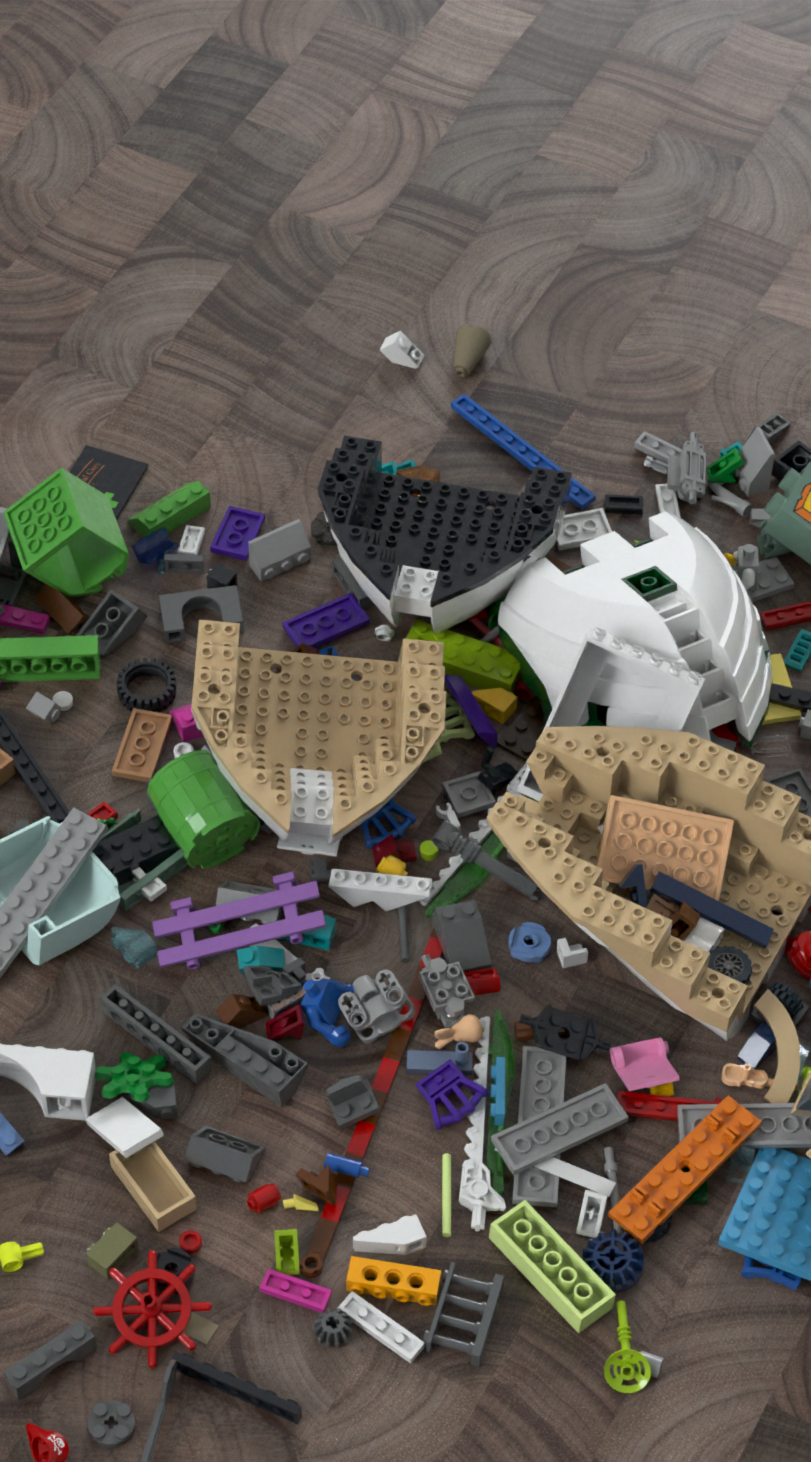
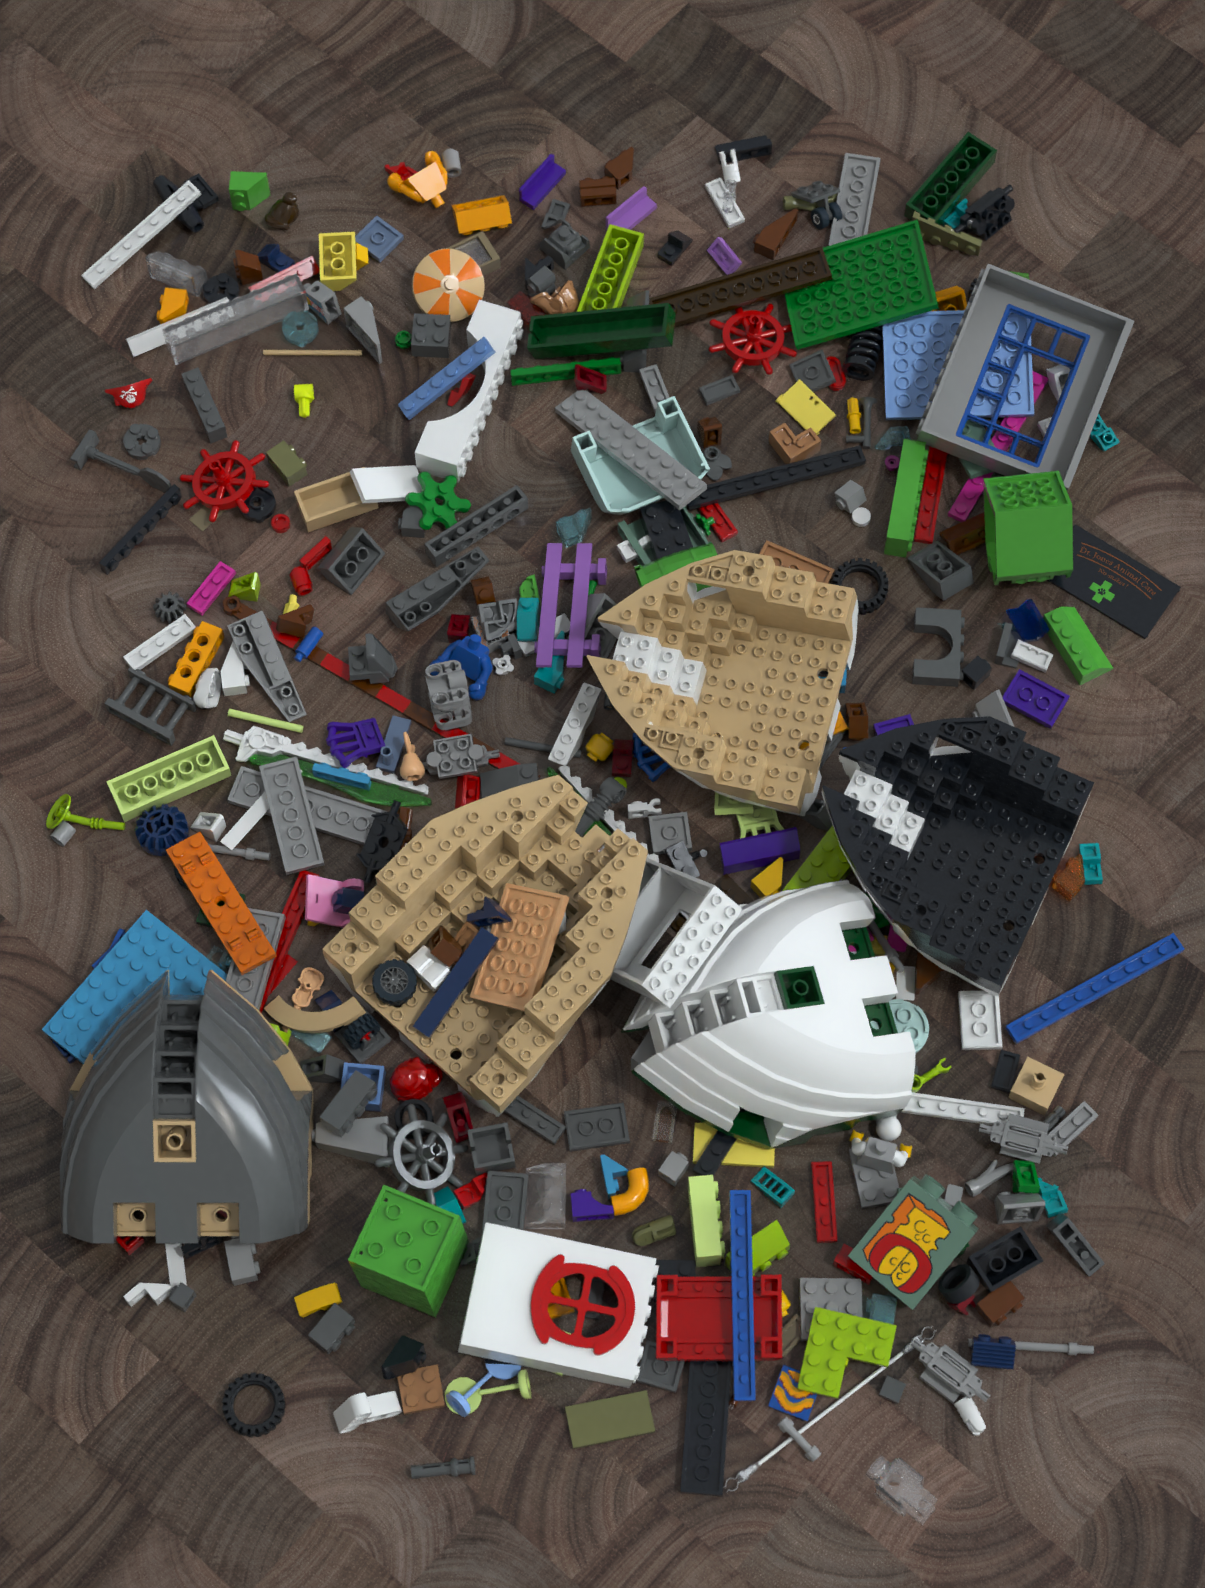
camera: 105 degrees right, 15 degrees up
(223, 972) = (529, 588): none -> bright green plate
(226, 1190) = (316, 553): none -> red tile
(378, 1201) = (265, 661): none -> light grey wedge
(428, 1255) = (208, 688): none -> white piece
(633, 475) = (1036, 1086): none -> tan brick
(640, 1052) = (346, 899): none -> dark blue brick

